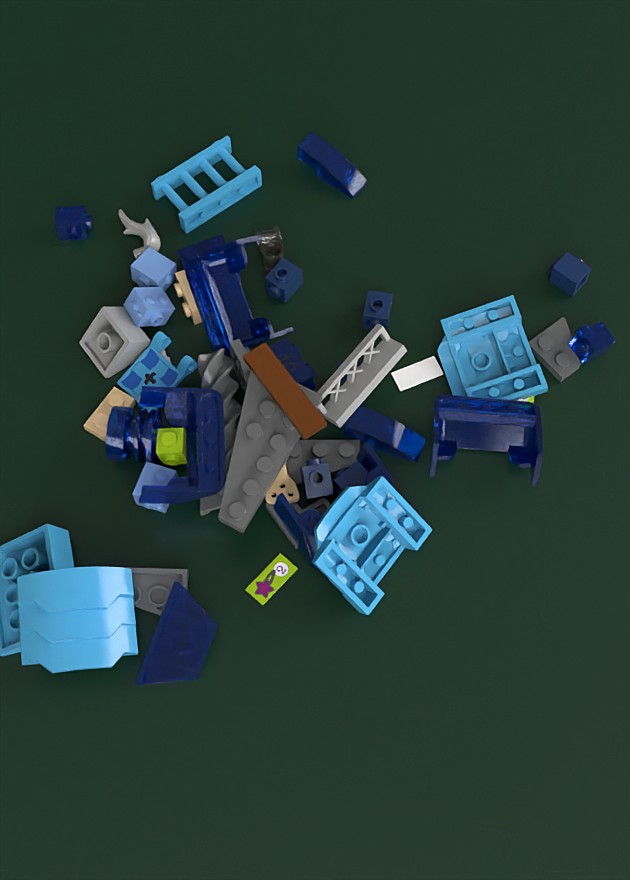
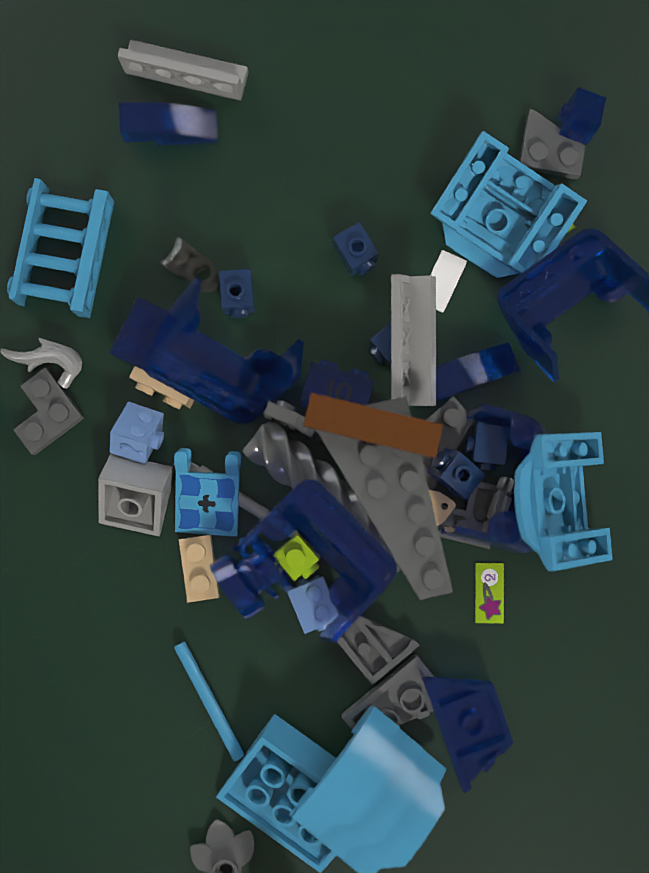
camera: 40 degrees left, 20 degrees up
(39, 490) = (209, 701): none -> dark azure bar
(115, 266) = (54, 415): none -> dark grey plate
(153, 270) = (102, 391): medium blue head -> none
(166, 544) = (375, 647): none -> dark grey wing
(369, 147) = (183, 69): none -> light grey fence
(569, 273) = (499, 56): dark blue brick -> none

